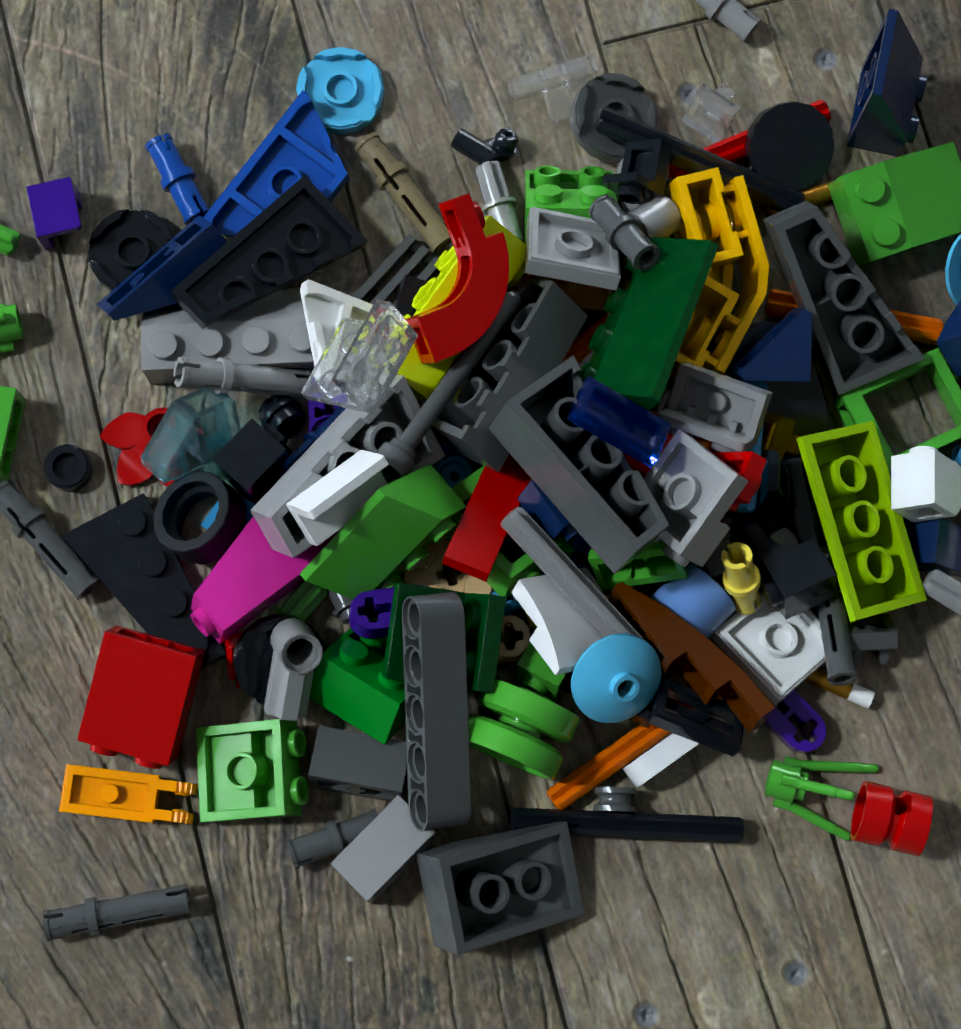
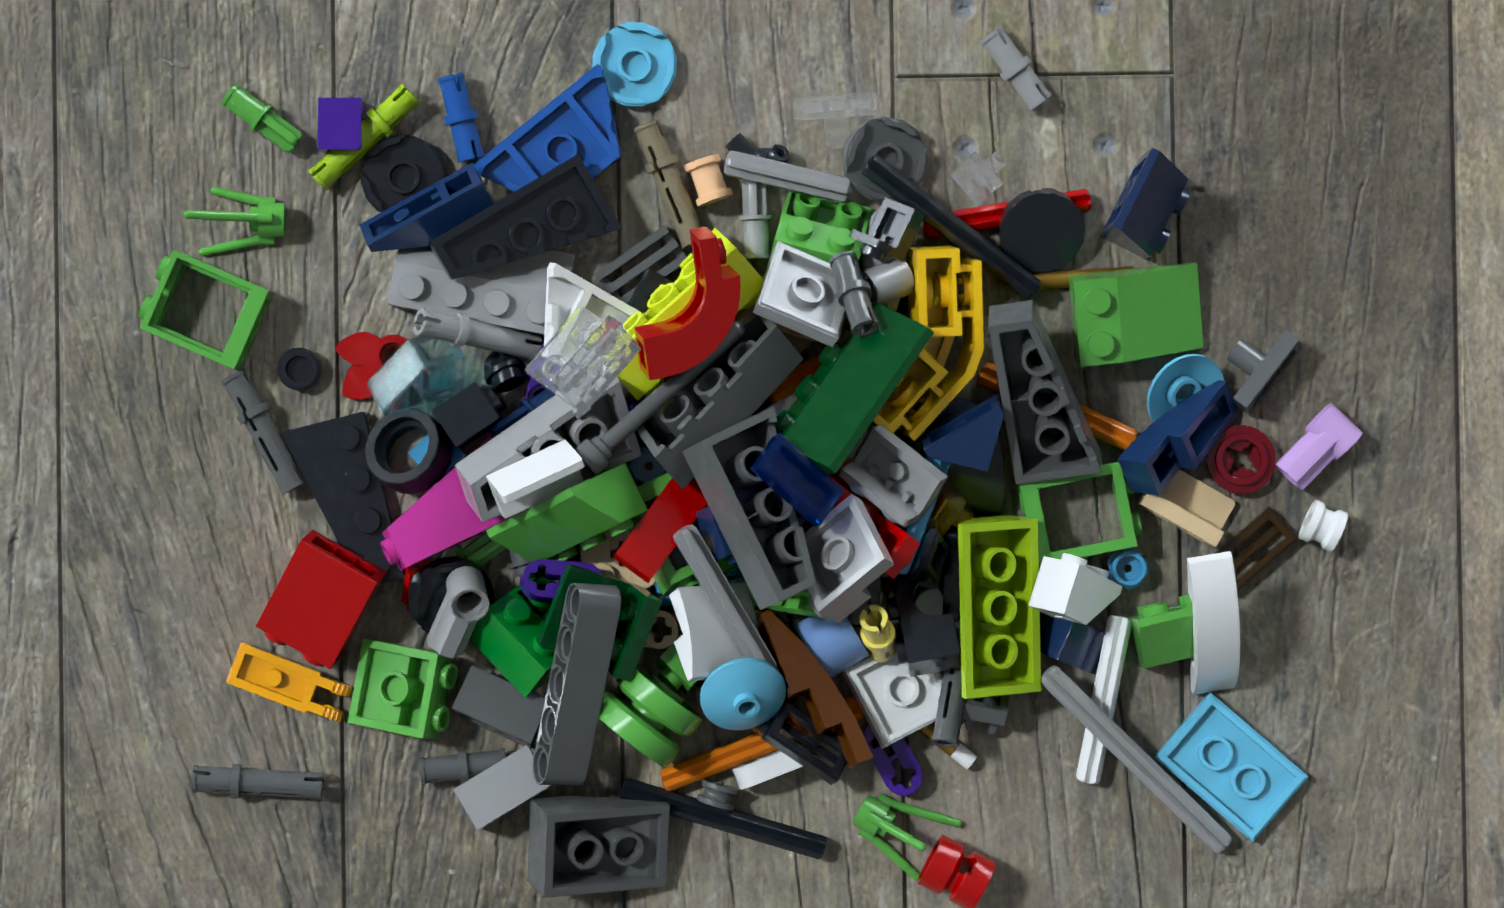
camera: 20 degrees right, 10 degrees up
(93, 207) = (374, 127): none -> lime pin
(441, 177) = (708, 180): none -> light nougat bush
(520, 153) = (786, 176): none -> light grey axle

